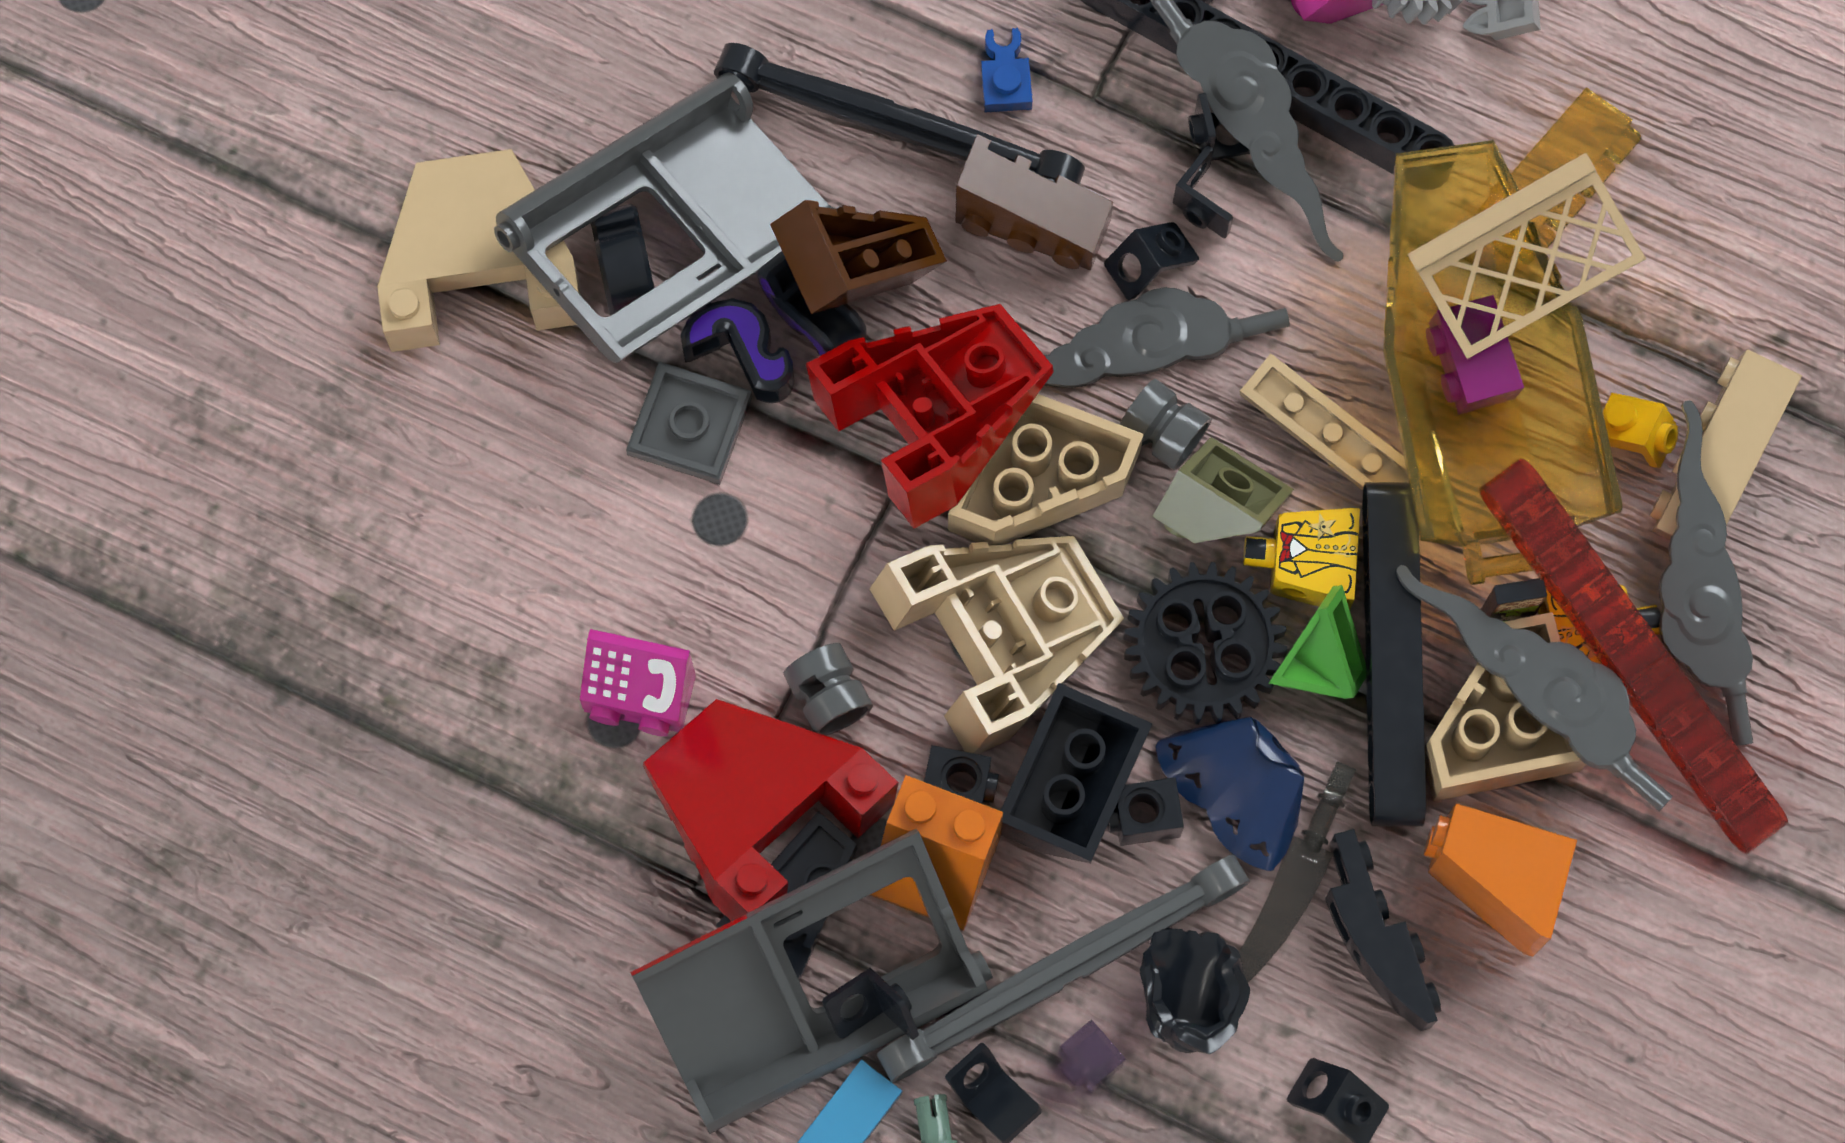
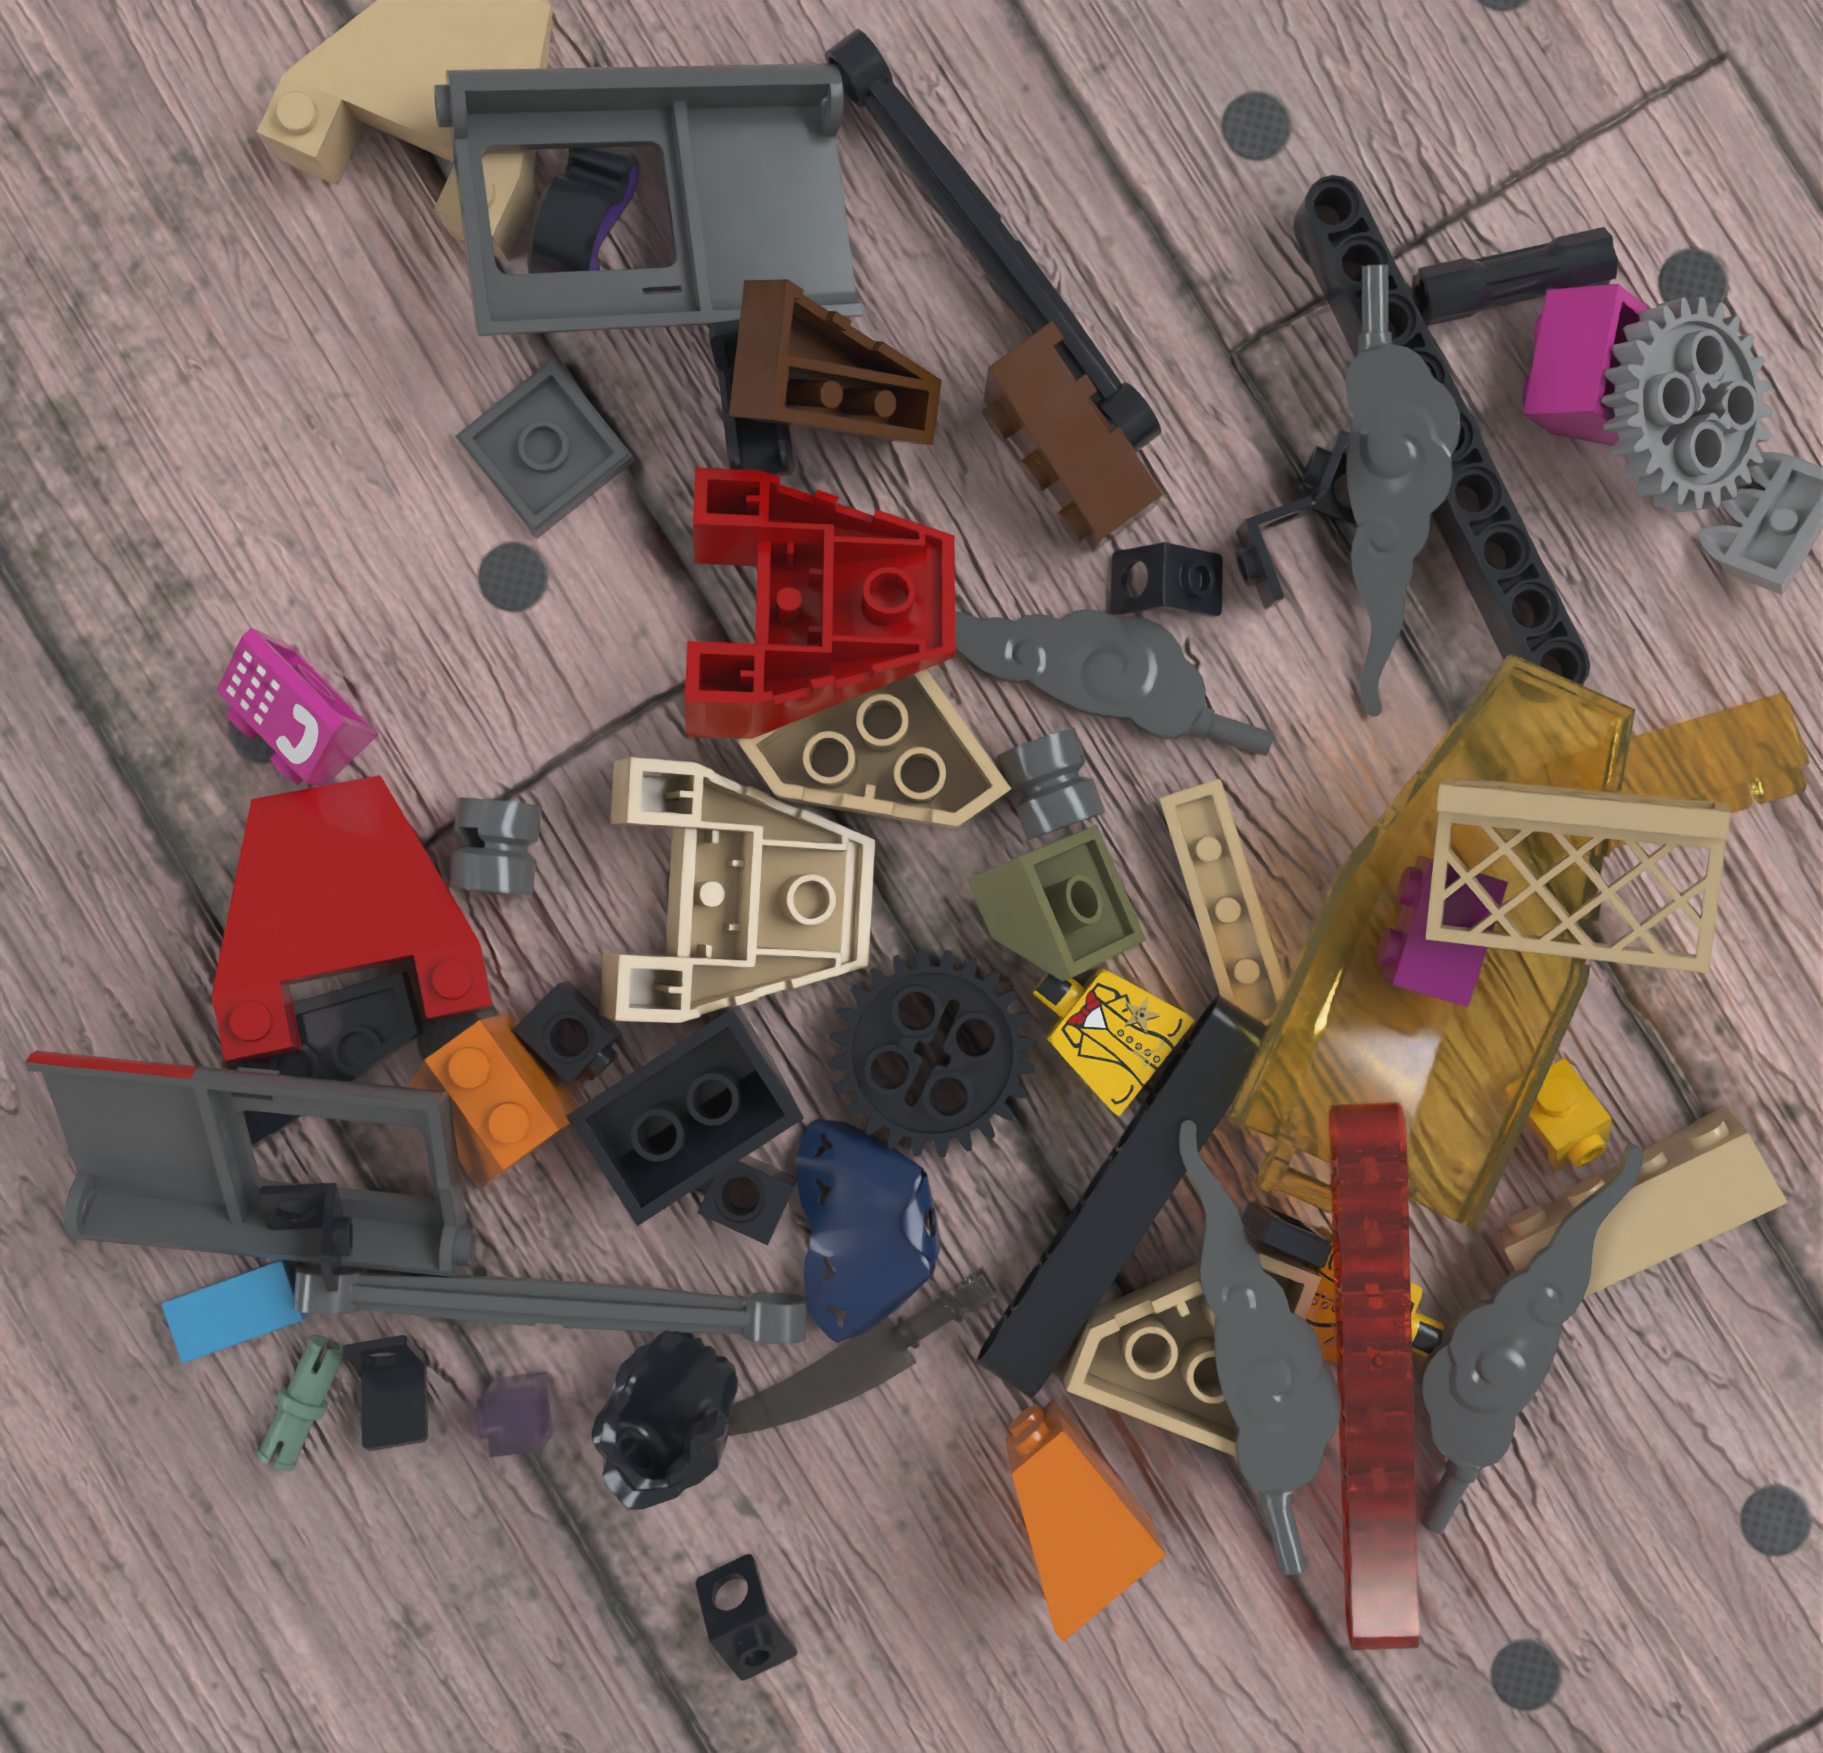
camera: 30 degrees right, 15 degrees up
(750, 338) = (663, 402): black animal -> none
(1004, 78) = (1147, 267): blue plate -> none
(1327, 653) = (1047, 1152): bright green slope -> none
(1383, 953) = (896, 1500): black slope -> none

